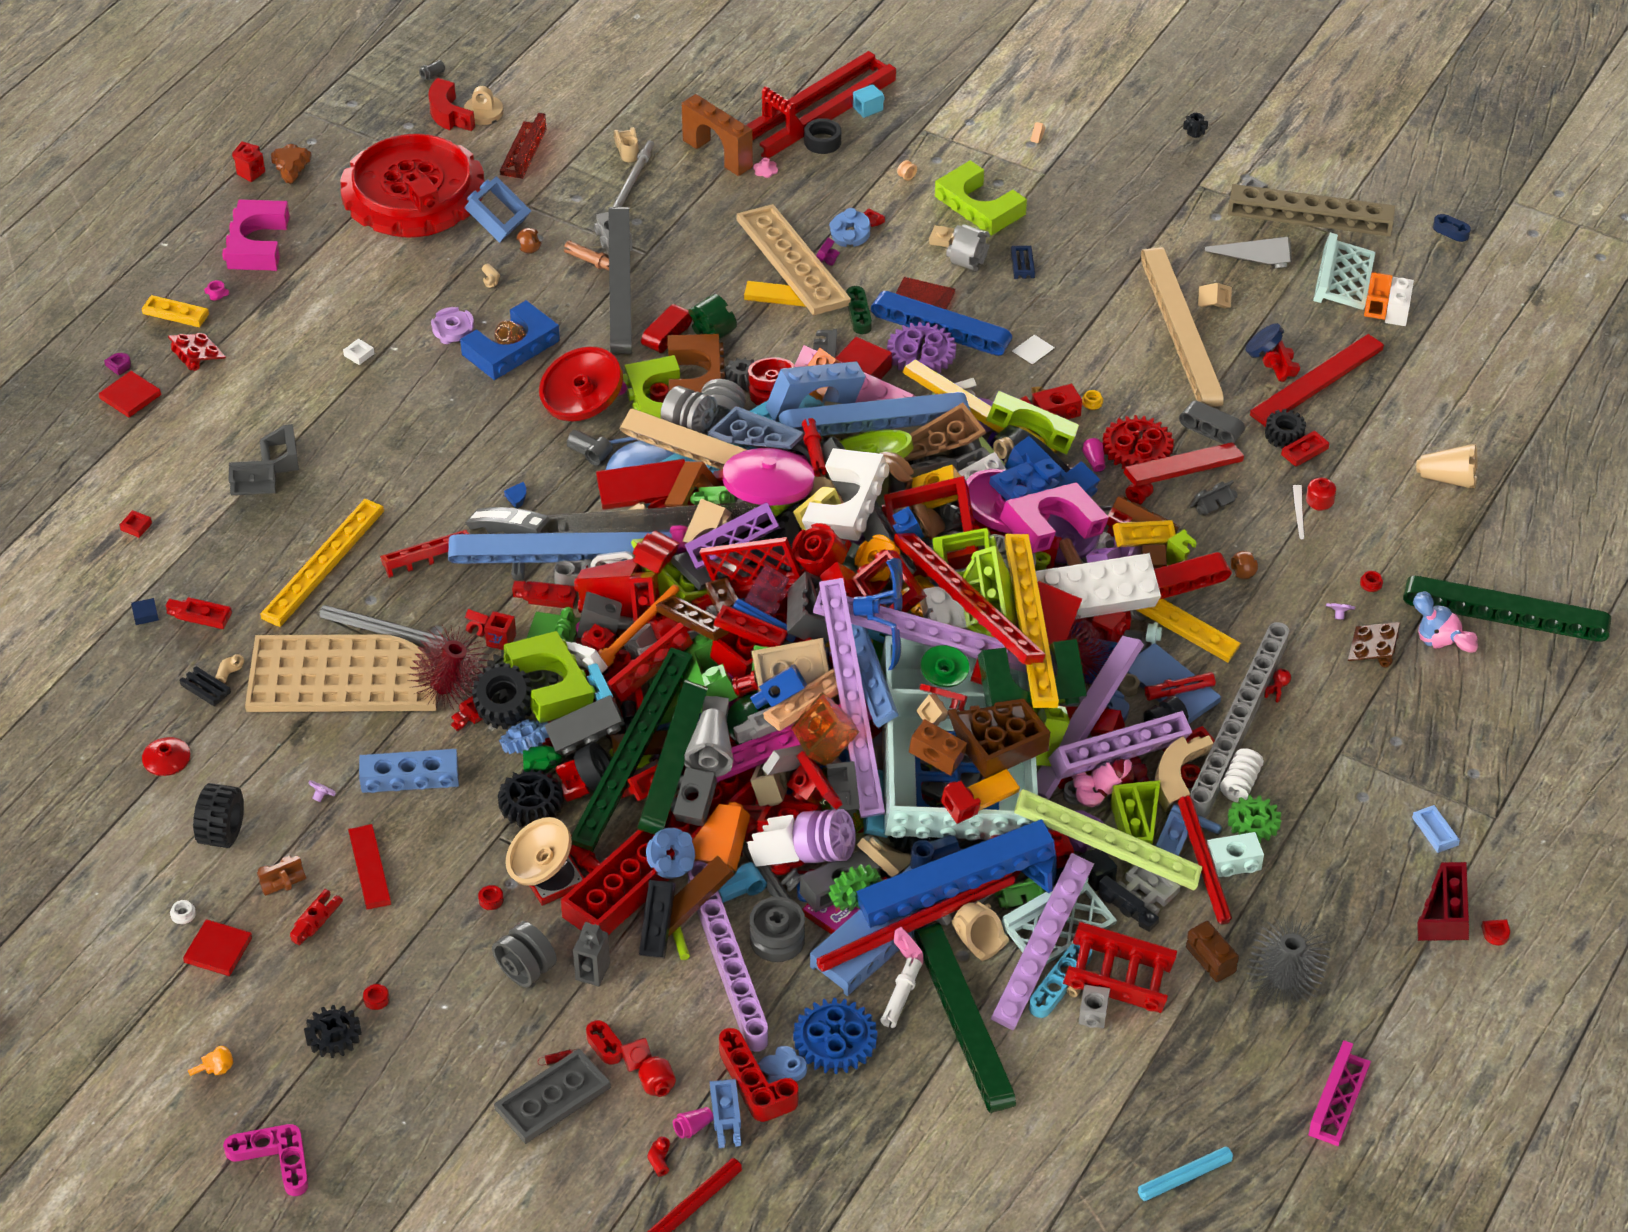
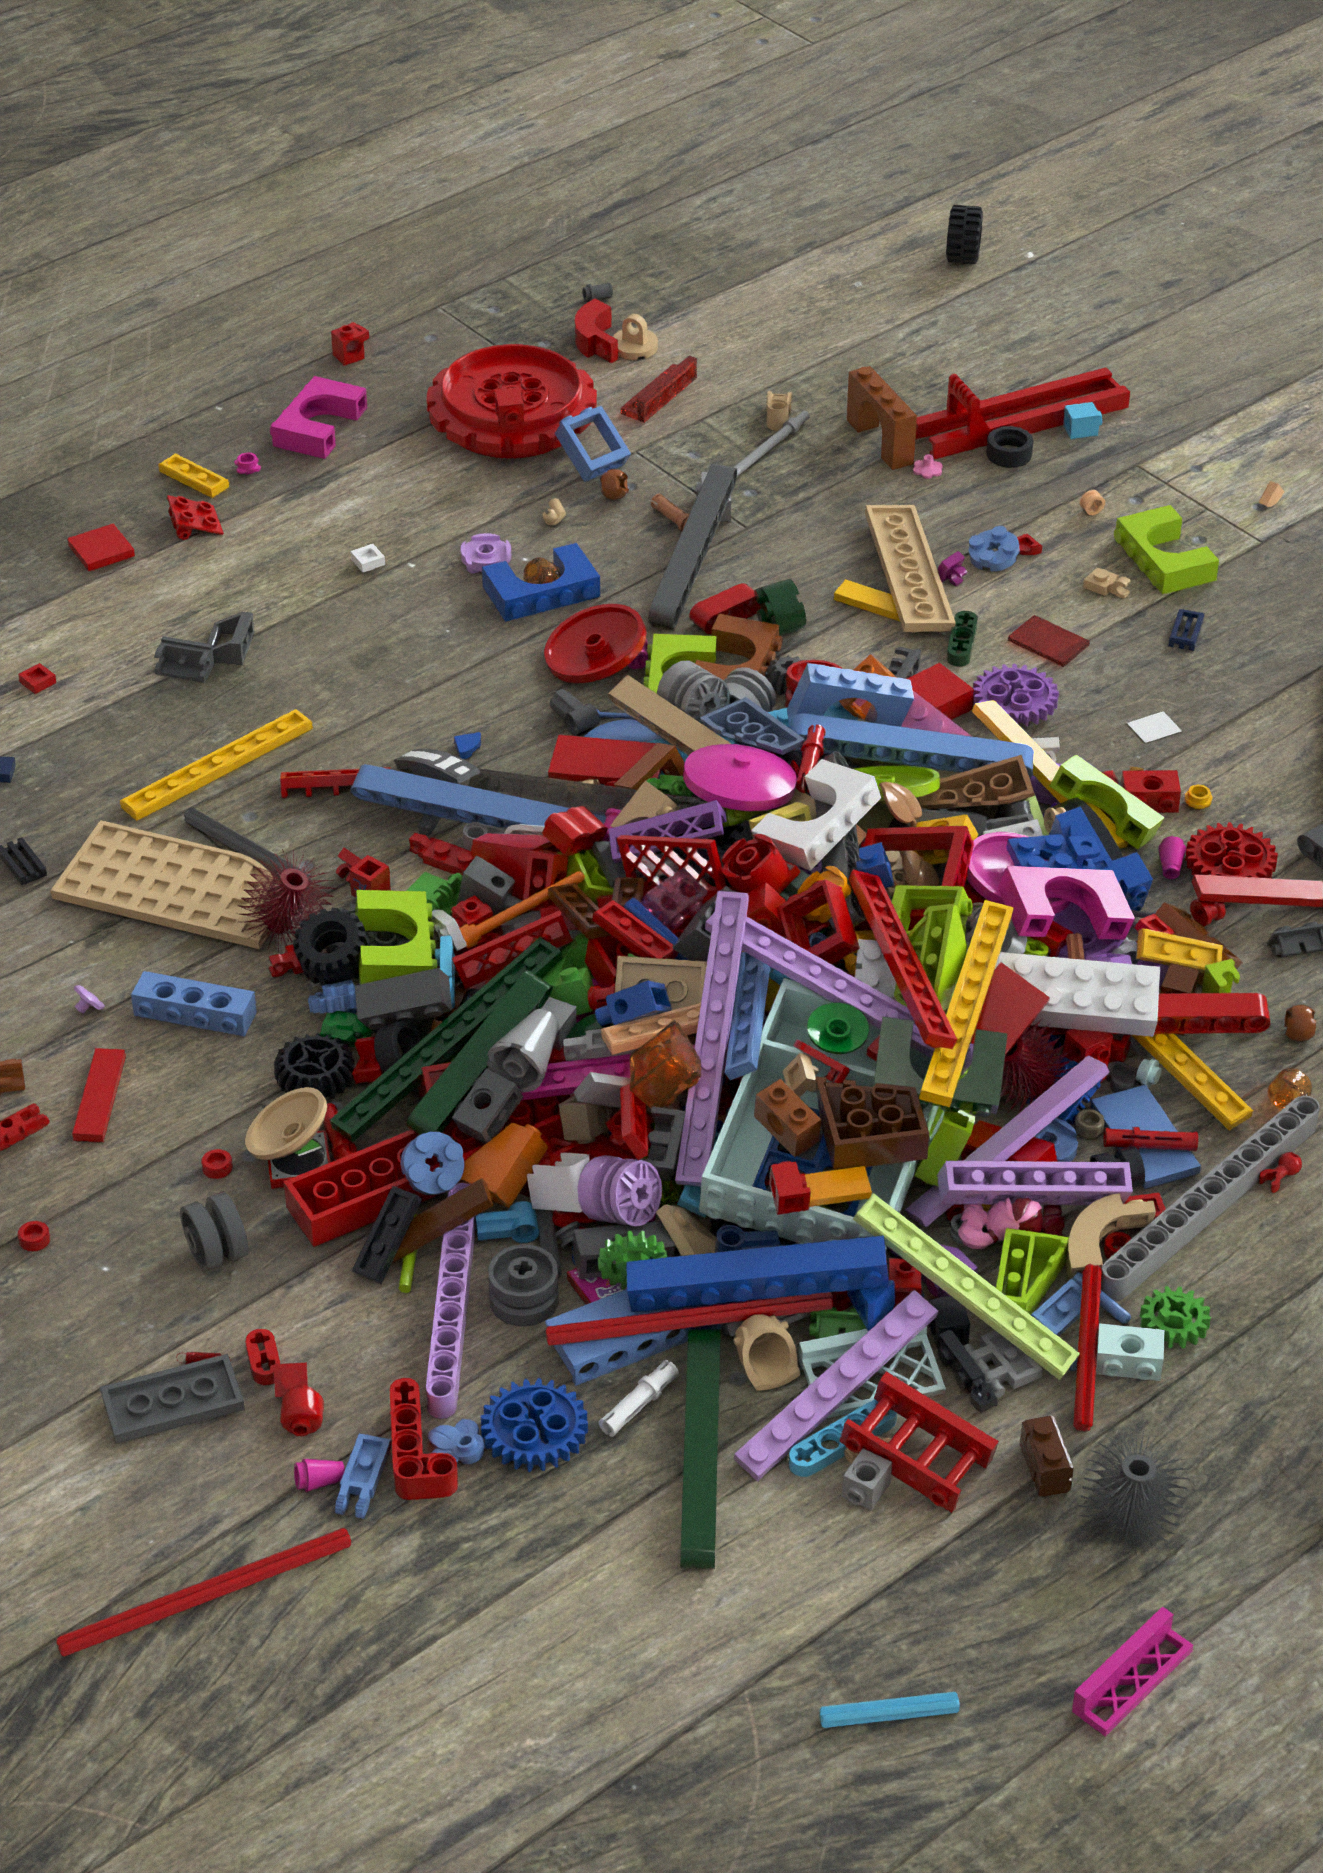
camera: 20 degrees right, 5 degrees down
(118, 363) = (106, 513): magenta tile -> none
(199, 612) = (55, 783): red hinge -> none
(229, 666) = (57, 846): tan arm -> none
(290, 161) = (394, 352): dark orange rock -> none
(591, 955) = (290, 1252): dark grey hinge -> none
(657, 1155) = (259, 1499): red arm -> none
(870, 605) = (770, 935): blue plant -> none
(907, 945) = (666, 1343): bright pink slope -> none
(963, 329) = (1072, 682): blue beam -> none
(968, 247) = (1122, 596): light grey brick -> none
(1241, 774) = (1182, 1260): white piece -> none
(1258, 619) = (1287, 1086): none -> clear orange head

